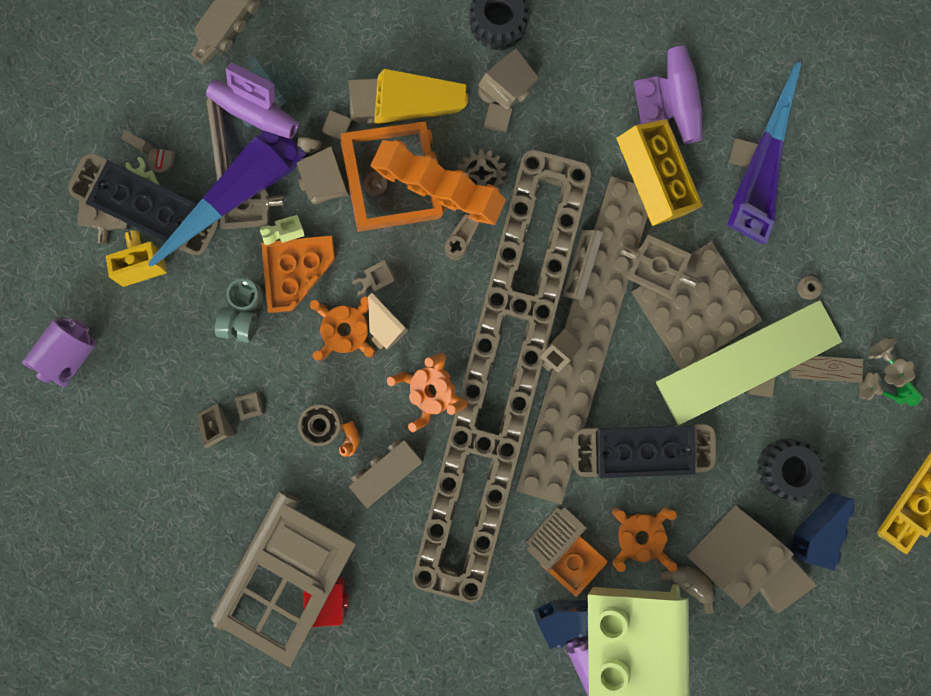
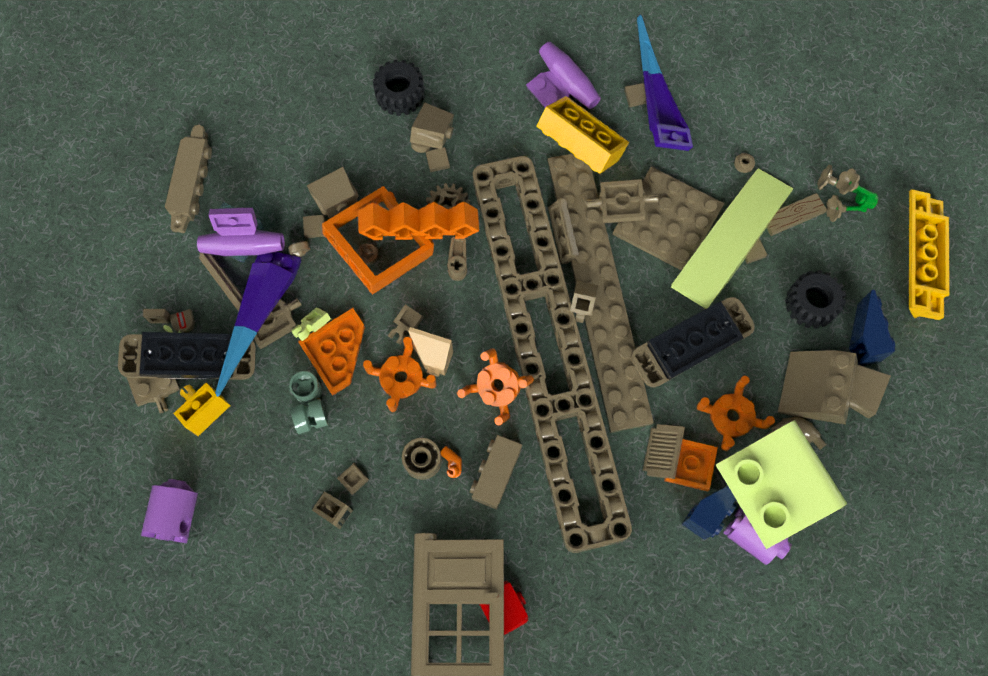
camera: 25 degrees left, 15 degrees down
(321, 177) = (322, 268): dark tan torso -> none
(413, 96) = (366, 171): yellow slope -> none

